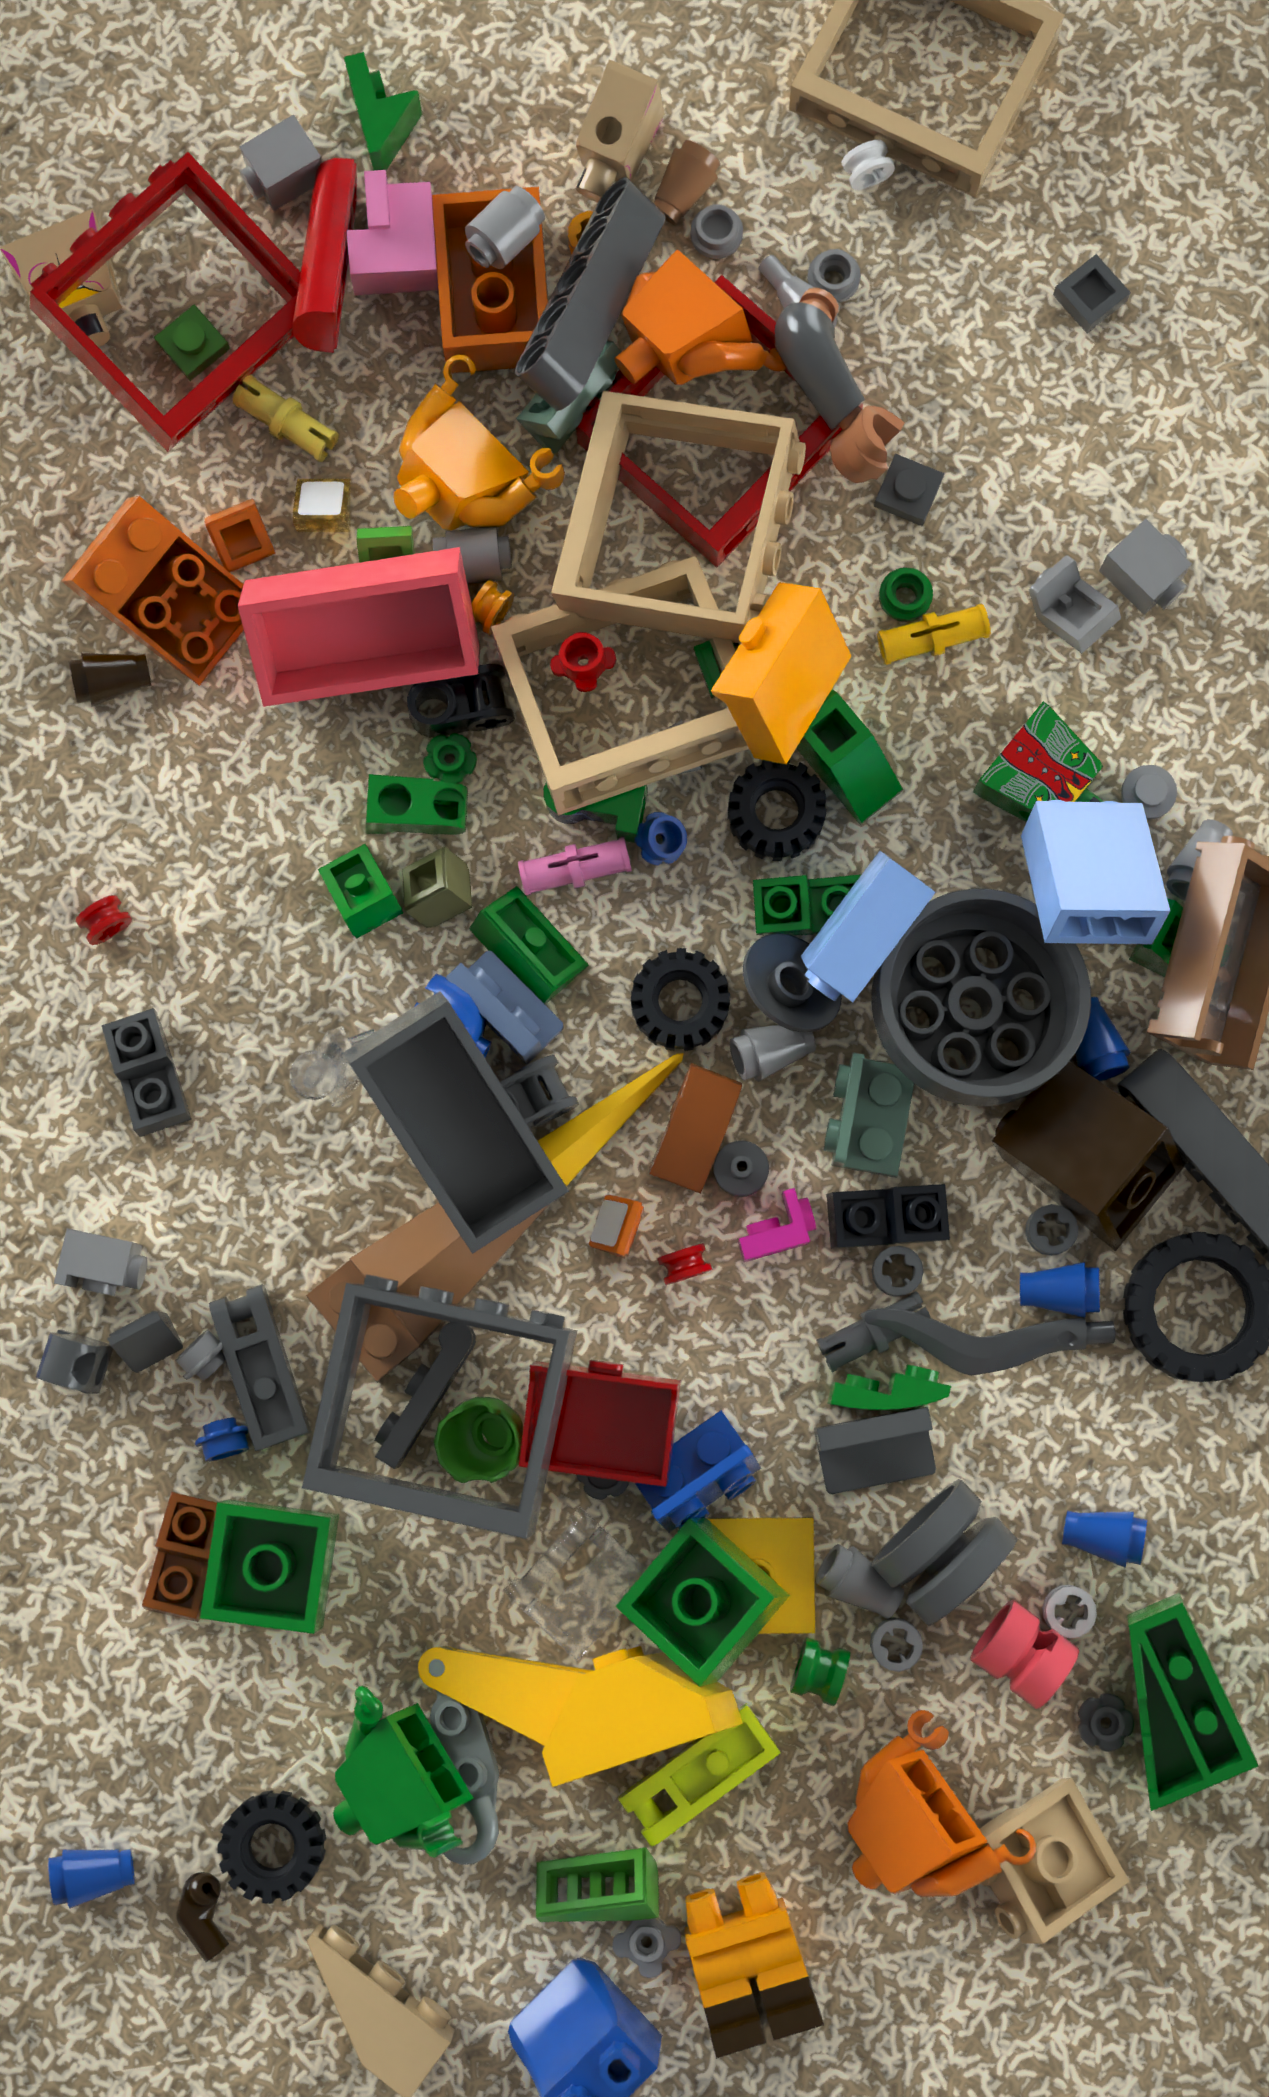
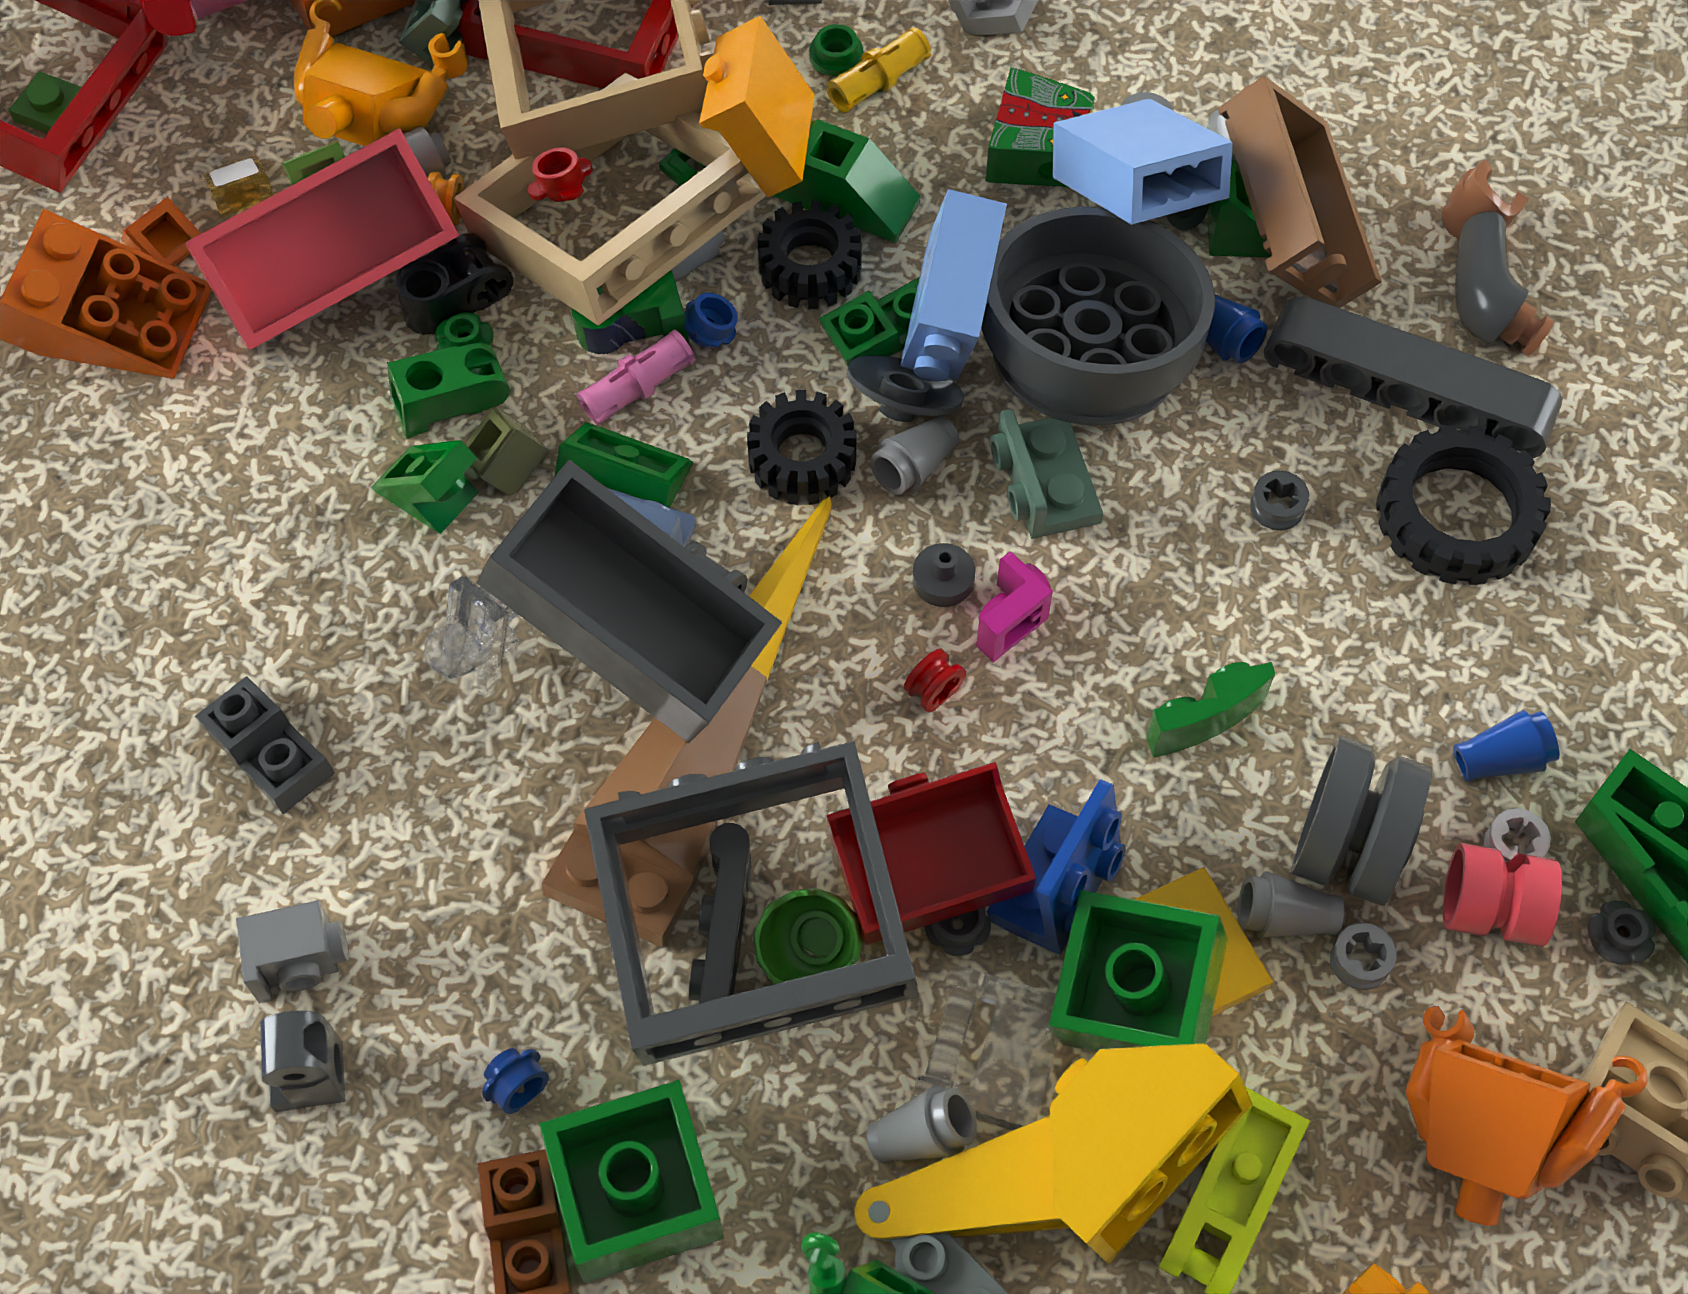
camera: 30 degrees left, 20 degrees down
(103, 919) = (156, 614): red bush -> none
(108, 676) = (72, 398): dark brown cone -> none
(146, 1341) = (377, 1010): dark grey slope -> none
(202, 1356) = (450, 1000): light grey plate -> none
(260, 1370) = (526, 987): dark grey plate -> none
(285, 418) = (169, 128): light yellow pin -> none
(498, 1625) = (926, 1127): none -> light grey cone
(616, 1225) = (846, 675): slope -> none
(695, 1128) = (878, 552): dark orange slope -> none
(820, 1671) = (1302, 1016): green wheel -> none
(863, 1338) = (1162, 663): dark grey pin -> none
(876, 1450) = (1226, 770): dark grey panel -> none
(888, 1216) = (1120, 554): black slope -> none
(910, 1259) = (1145, 614): dark grey bush -> none
(991, 1353) = (1289, 633): dark grey piece -> none
(1062, 1289) = (1325, 543): blue cone -> none
(1090, 1152) = (1276, 406): dark brown slope -> none

